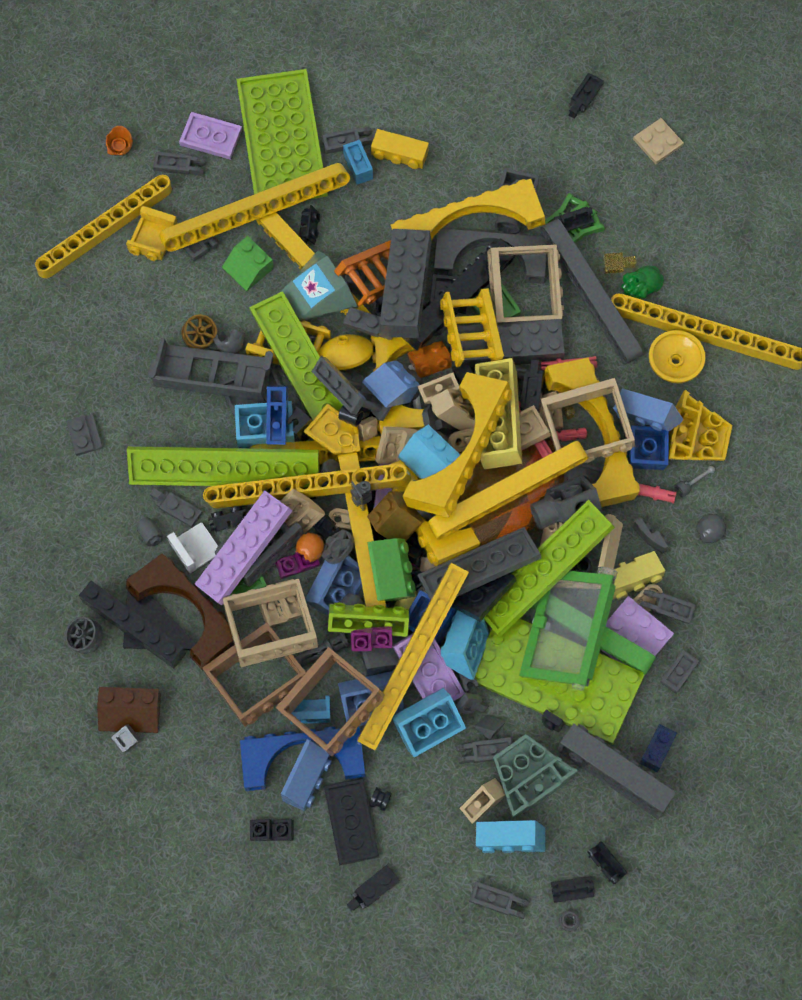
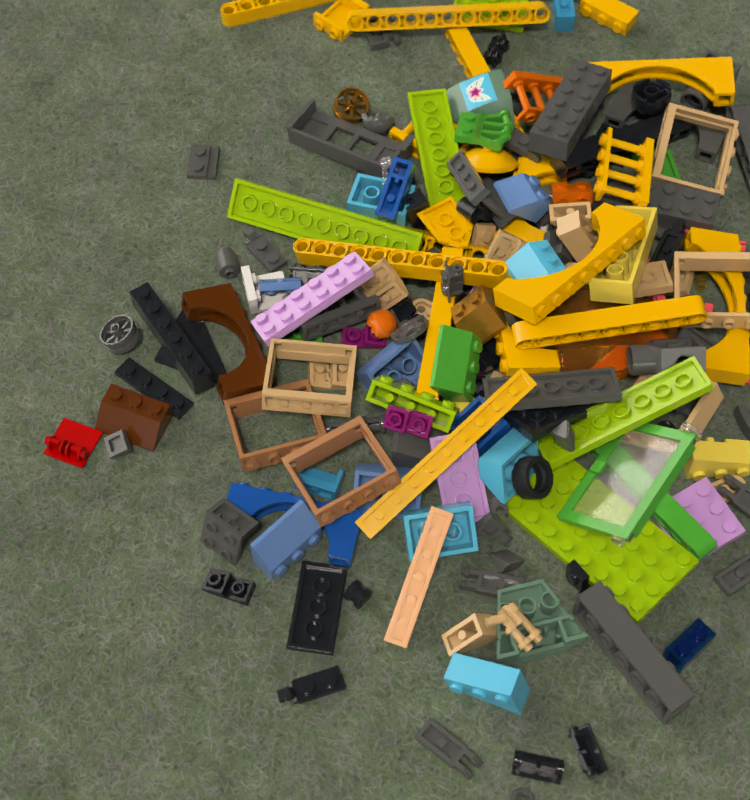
camera: 20 degrees right, 10 degrees down
(85, 750) = (72, 443): none -> red hinge
(133, 674) = (153, 387): none -> black plate
(205, 539) = (271, 286): none -> medium blue plate
(248, 263) = (423, 64): bright green slope -> none
(253, 784) = (225, 530): none -> dark grey bracket
(258, 390) = (385, 164): none -> clear hand
(321, 327) = (485, 129): none -> bright green plate
(426, 769) = (418, 577): none -> light nougat tile
(470, 239) = (651, 97): none -> black cylinder
(480, 653) = (521, 480): none -> black tyre
(504, 605) = (564, 436): none -> dark grey slope
(514, 778) = (511, 618): none -> tan piece

